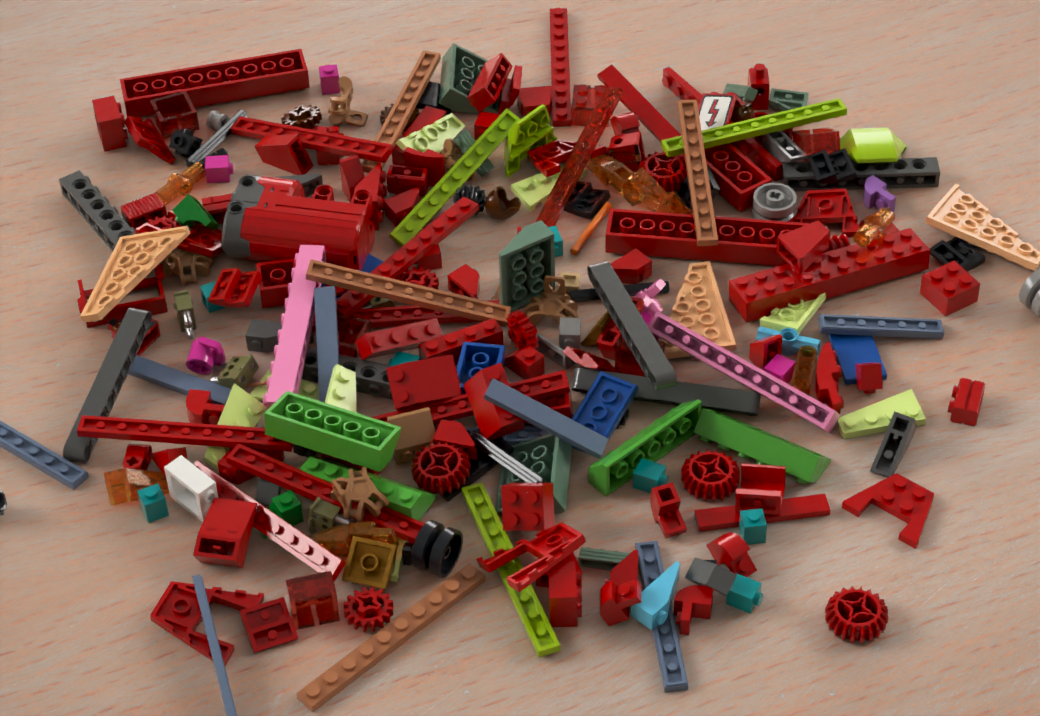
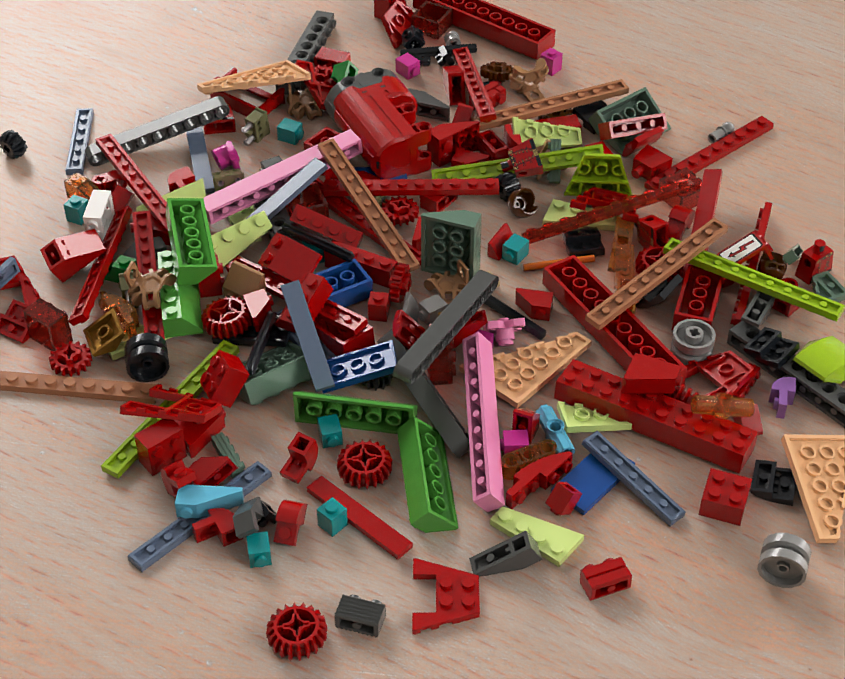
camera: 50 degrees right, 0 degrees up
(181, 183) = (374, 59): clear orange piece -> none
(234, 137) = (444, 57): none -> black tile
(235, 288) = (295, 131): red slope -> none
(415, 353) = (318, 242): none -> black axle
(464, 166) = (523, 160): none -> red torso
(543, 42) = (721, 132): none -> light grey pin
(761, 488) = (374, 503): red panel -> none
(820, 139) = (785, 320): clear red piece -> none
(875, 565) = (360, 615): none -> dark grey brick

